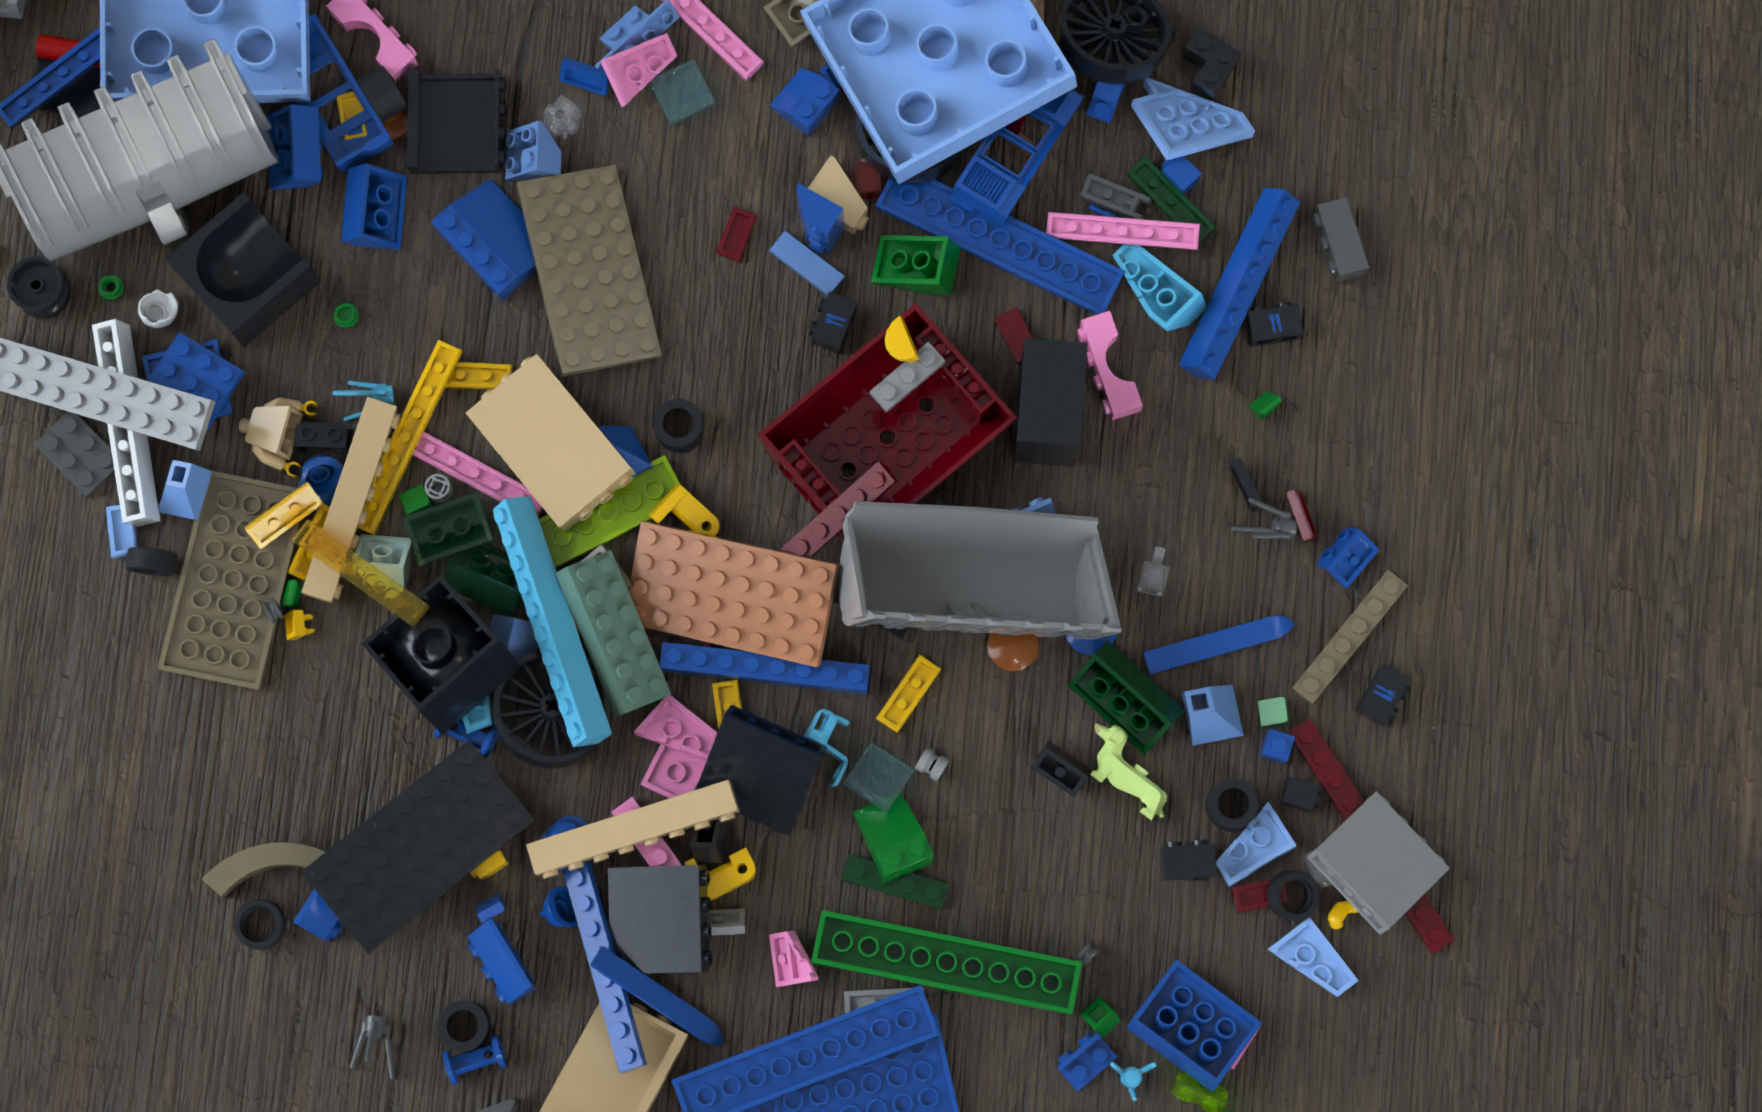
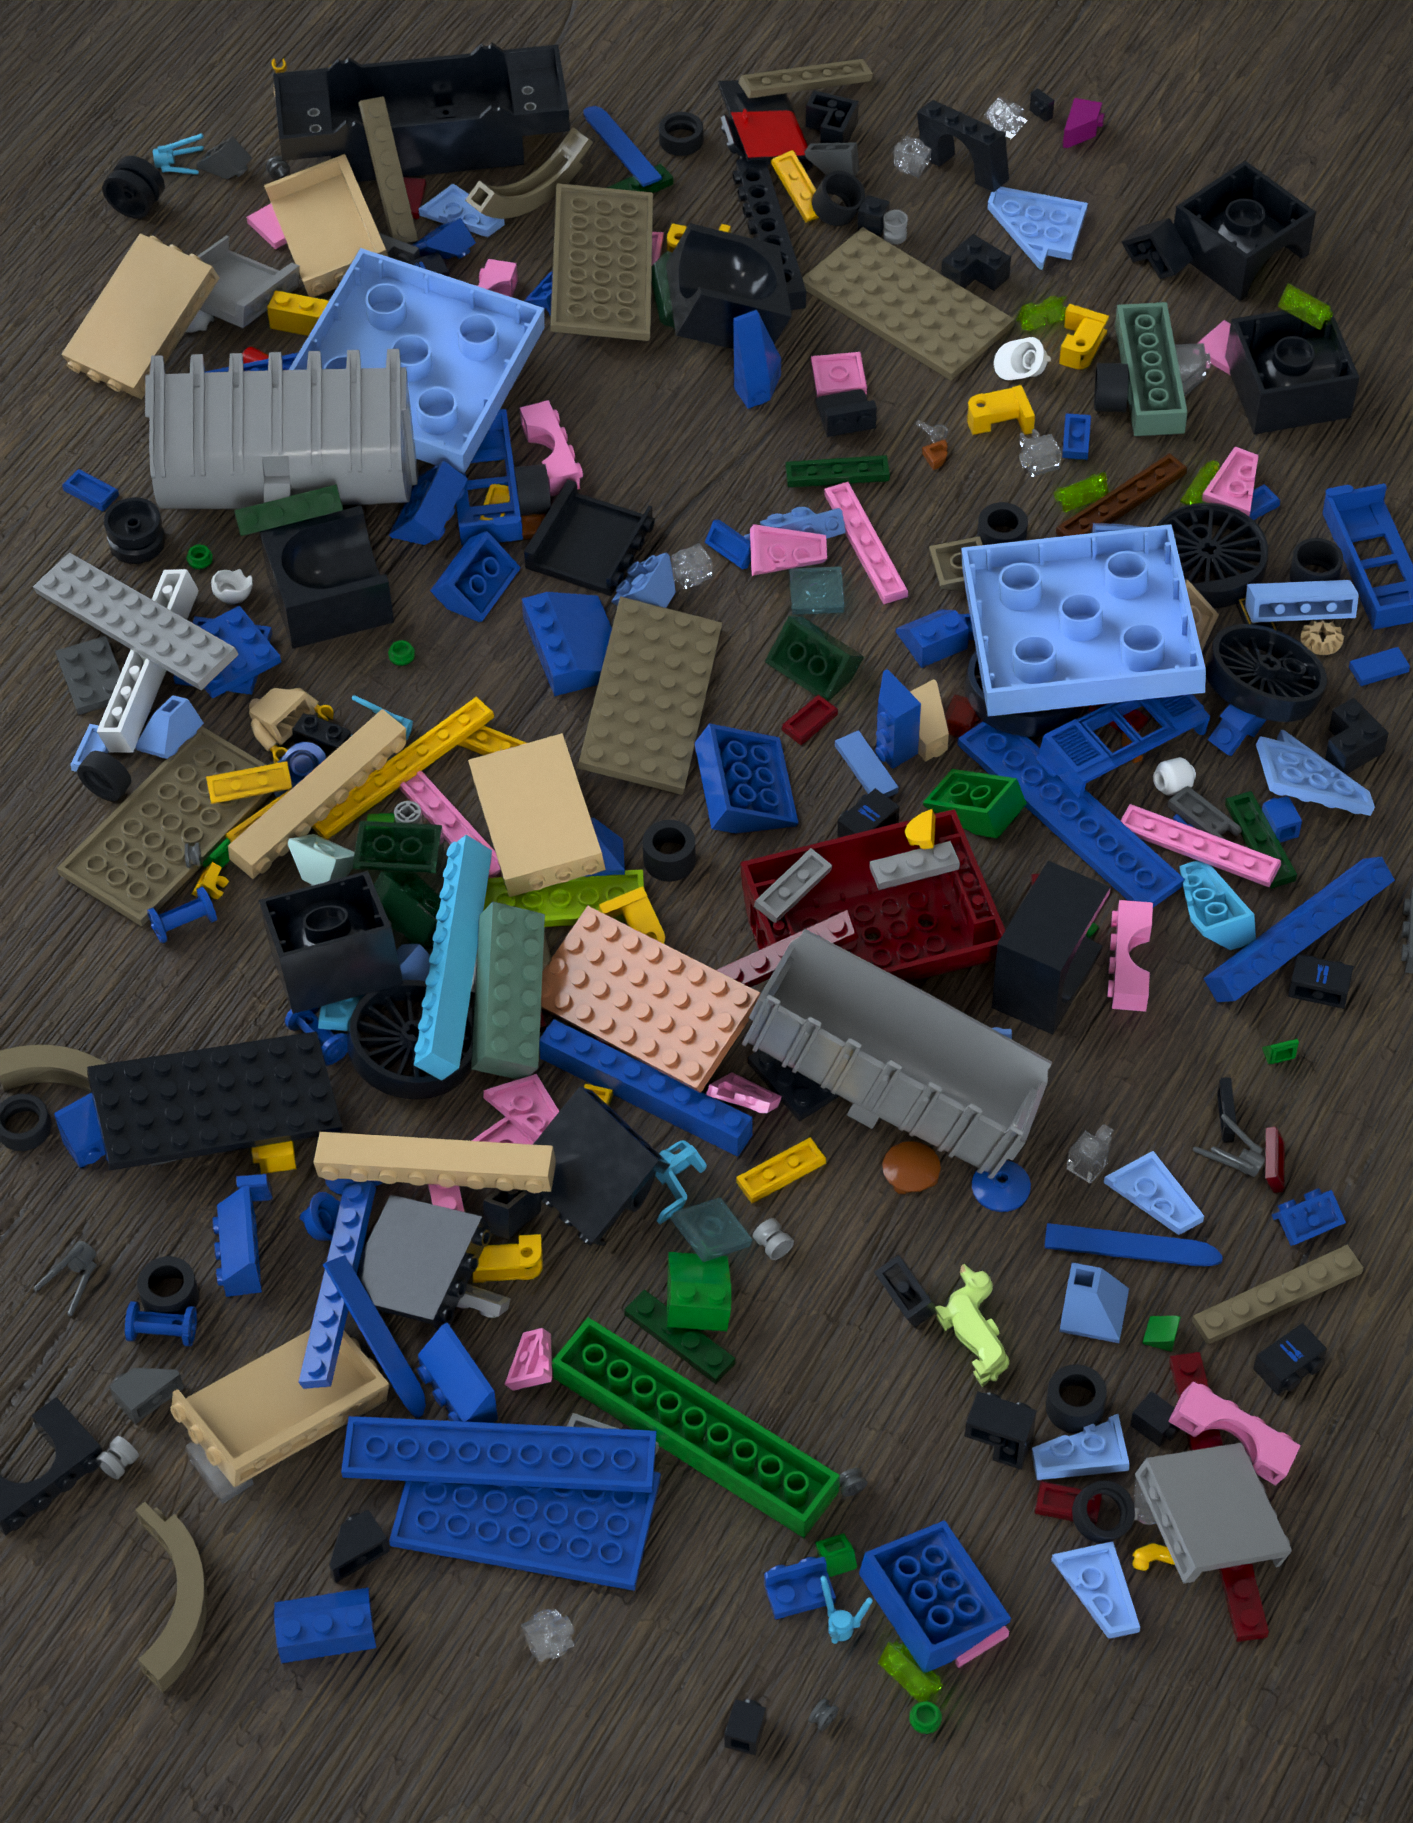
camera: 25 degrees right, 25 degrees down
(182, 228) = (288, 510): none -> dark green plate
(291, 669) = (182, 915): none -> blue hose
(360, 573) = (292, 841): clear yellow plate -> none
(711, 325) = (744, 780): none -> blue slope
(713, 170) = (813, 658): none -> clear green slope
(740, 1009) = (456, 1379): none -> blue slope
(814, 441) = (793, 885): none -> light grey plate
(849, 640) = (743, 1093): none -> bright pink wing
(1074, 167) = (1173, 776): none -> white head
(1126, 697) = (1008, 1250): dark green slope -> none
(1219, 586) = (1156, 1192): none -> light blue wing
(1276, 746) = (1150, 1362): blue brick -> none
(1337, 783) = (1269, 1450): none -> bright pink arch

